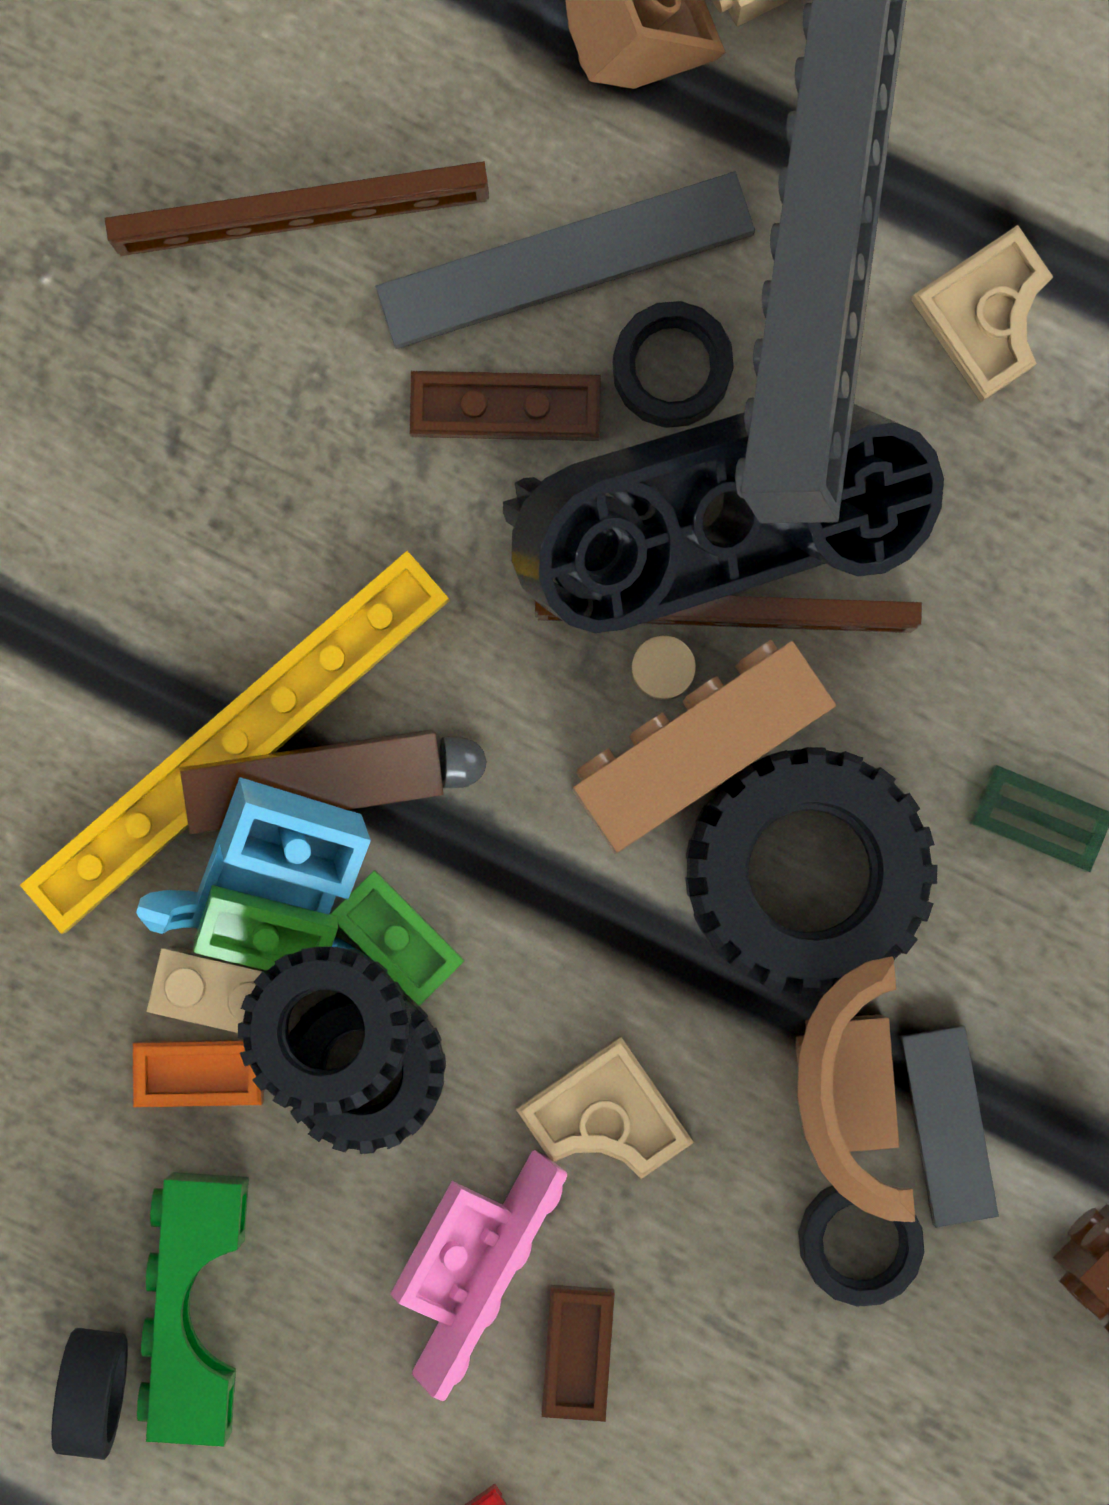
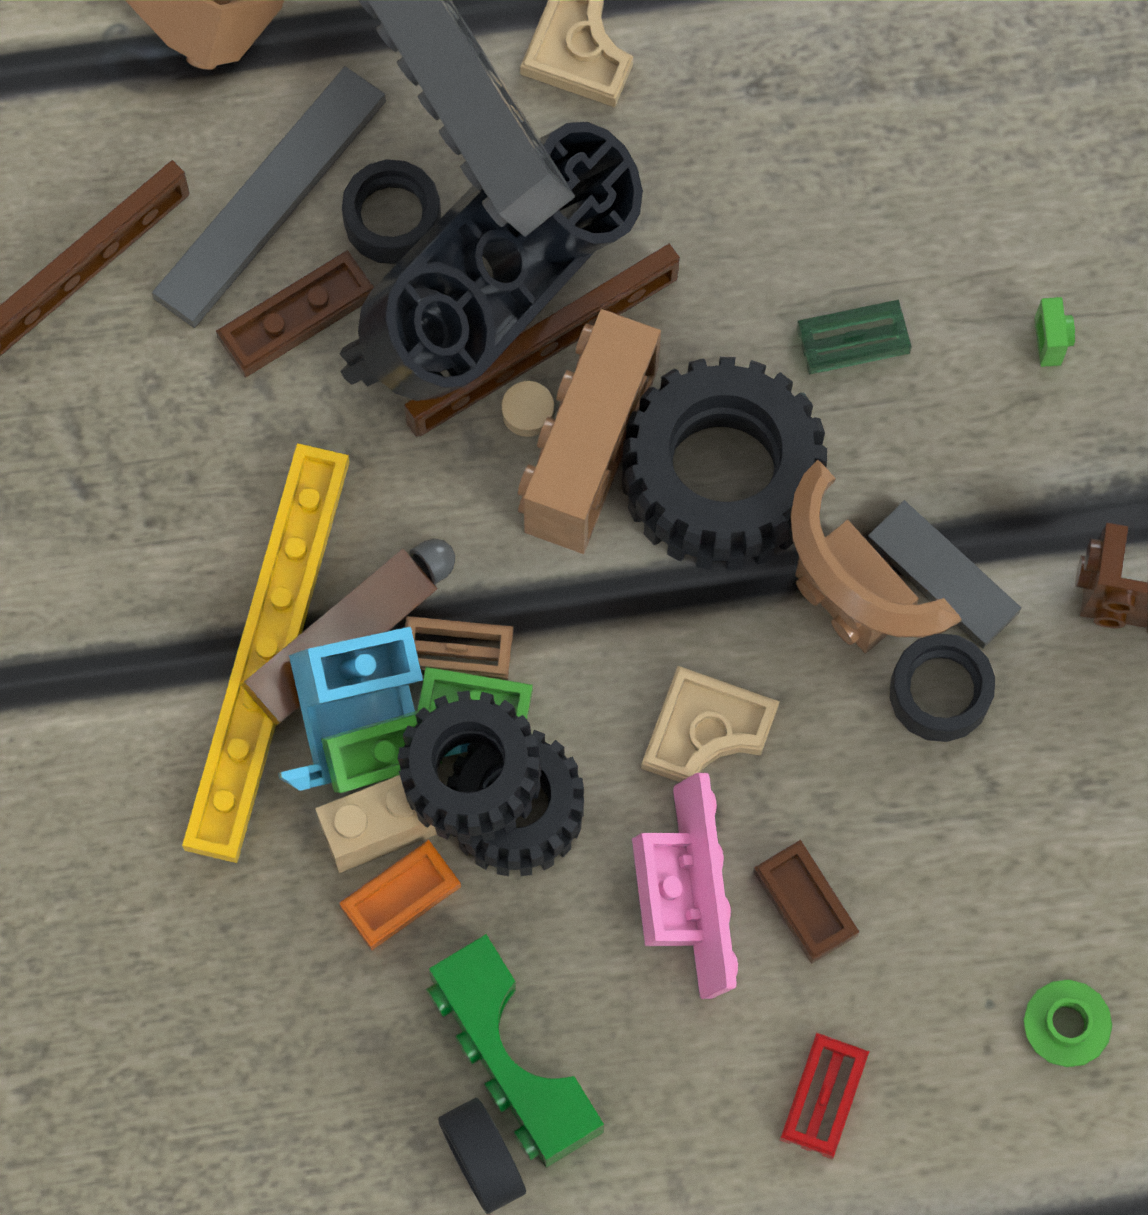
camera: 35 degrees left, 15 degrees down
(462, 902) = (465, 630): none -> medium nougat tile

